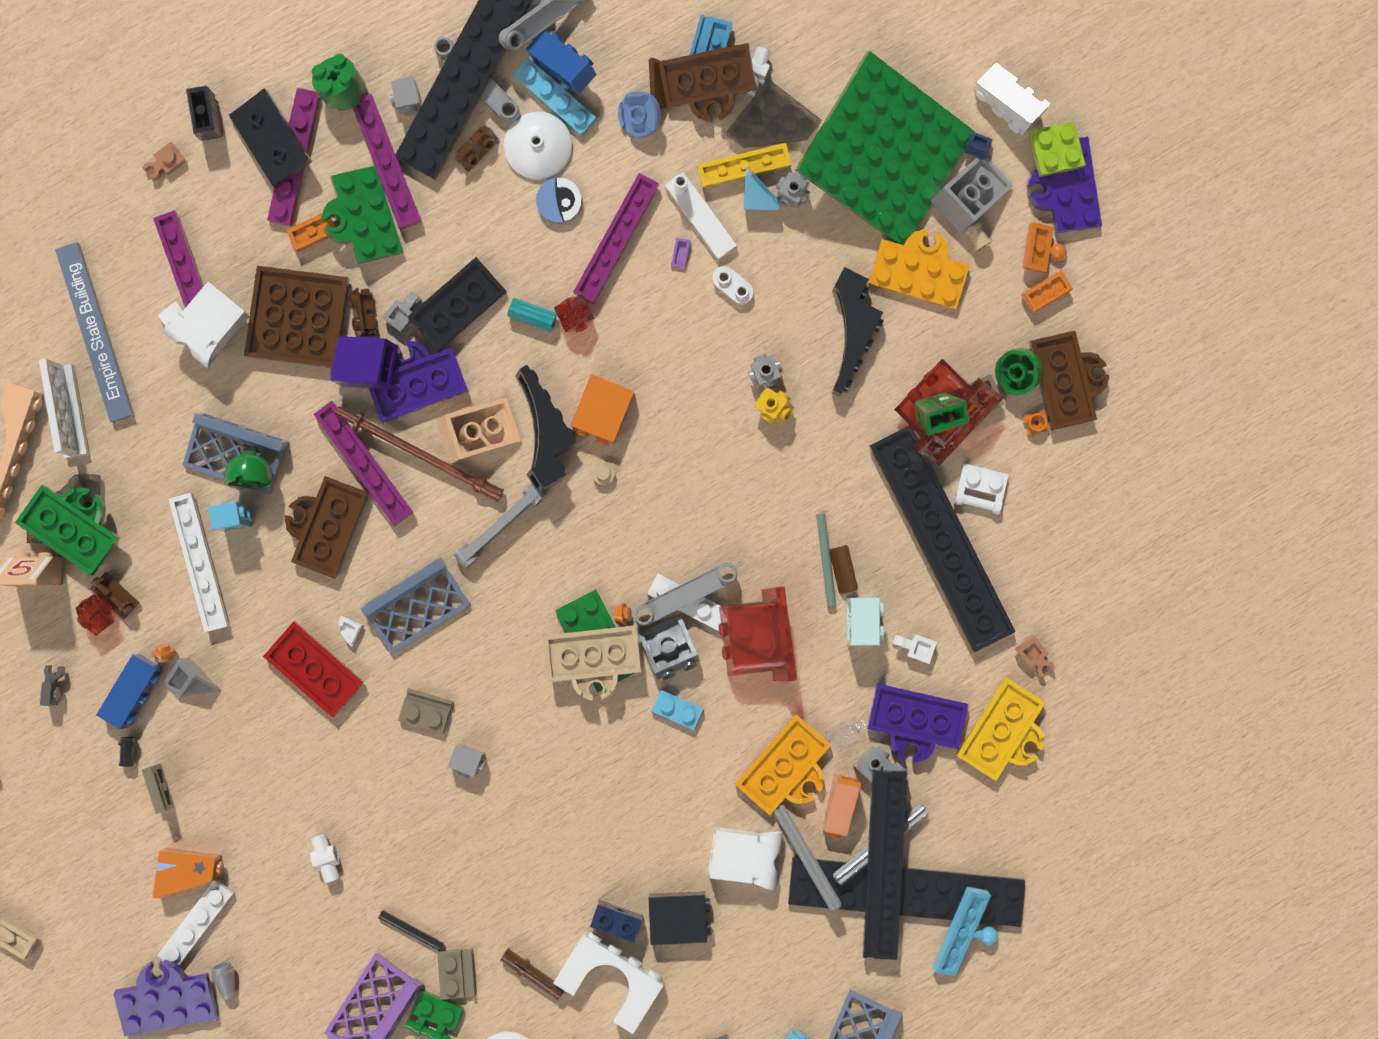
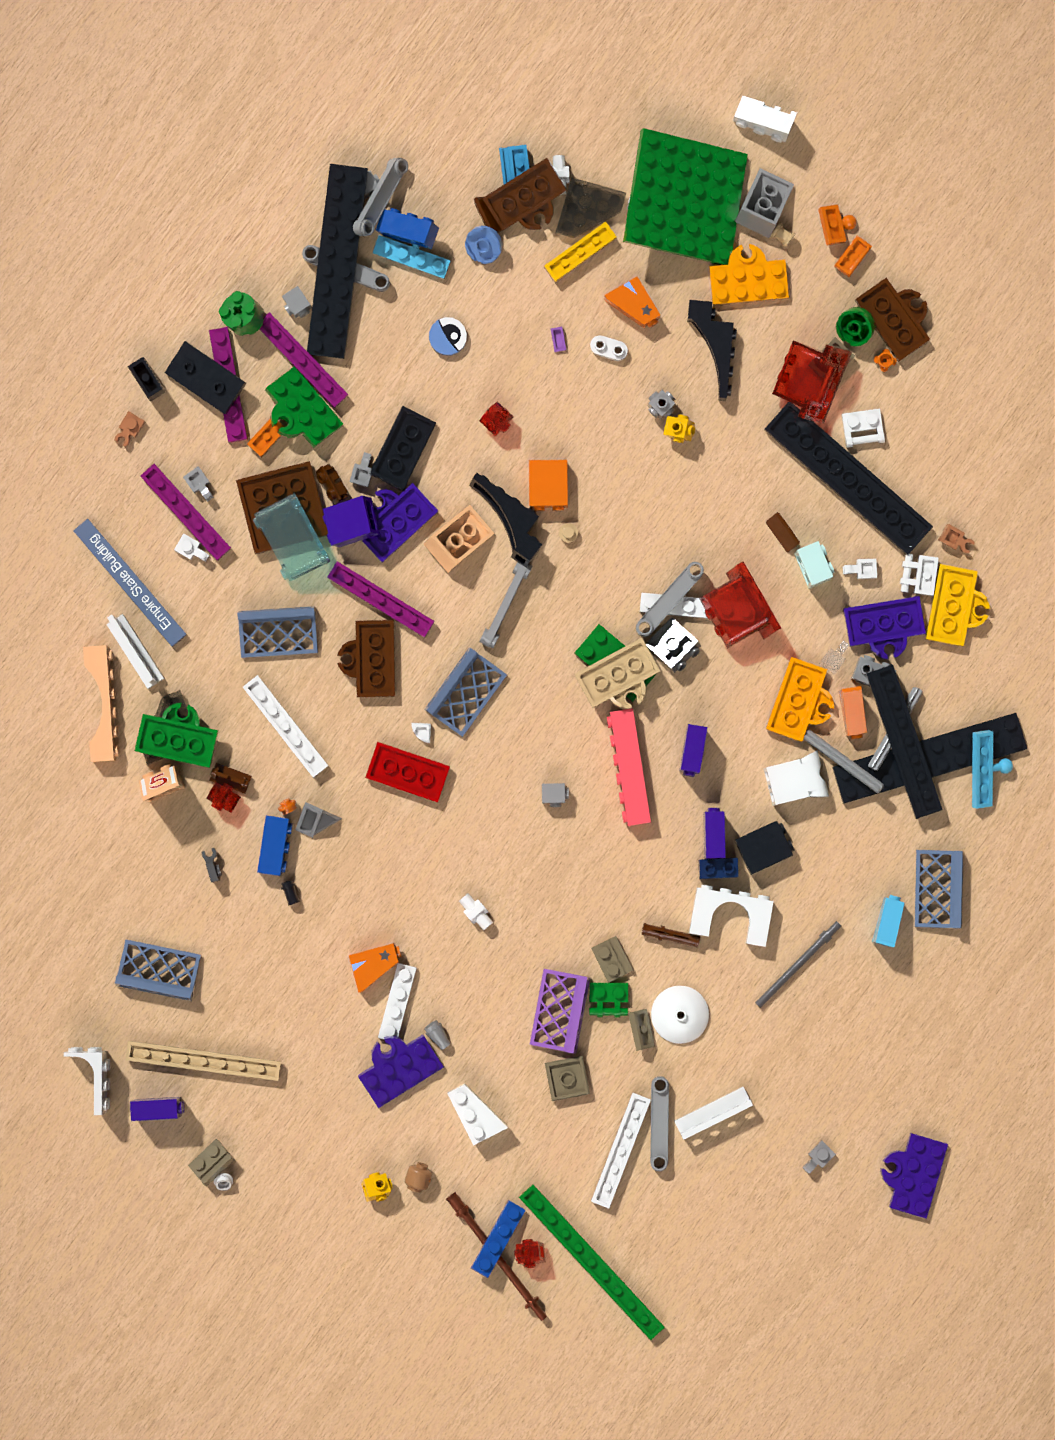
camera: 20 degrees left, 0 degrees up
(158, 788) = (331, 916): dark tan plate -> none
(206, 324) = (219, 540): white piece -> none
(215, 250) = (197, 482): none -> light grey plate
(230, 516) = (298, 679): medium azure brick -> none
(248, 471) = (297, 639): green cylinder -> none
(289, 354) = (291, 537): none -> clear light blue windscreen
(410, 930) = (563, 940): black bar -> none
(425, 710) = (506, 769): dark tan plate -> none
(479, 484) = (477, 579): copper bar -> none
(483, 141) = (364, 329): reddish brown hinge -> none
(532, 314) = (463, 433): teal axle -> none
(538, 160) = (418, 312): white dish -> none
(563, 767) = (629, 766): none -> coral brick
(616, 238) = (504, 347): magenta plate -> none
(622, 614) = (627, 634): orange plate -> none
(627, 882) = (714, 833): none -> dark purple brick
(641, 776) = (693, 750): none -> dark purple brick
(677, 709) = (698, 690): medium azure plate -> none
(700, 216) = (562, 304): white piece -> none
(757, 195) = (599, 270): medium azure slope -> none
(781, 246) = (634, 303): none -> orange slope
(789, 197) = (622, 262): light grey brick -> none
(826, 559) = (766, 530): sand green bar -> none
(940, 413) = (808, 382): green torso -> none
(978, 145) = (754, 164): dark blue tile -> none
(984, 683) = (925, 574): none -> white plate
(1056, 149) = (816, 143): lime plate -> none
(1069, 195) = (836, 167): dark purple plate -> none

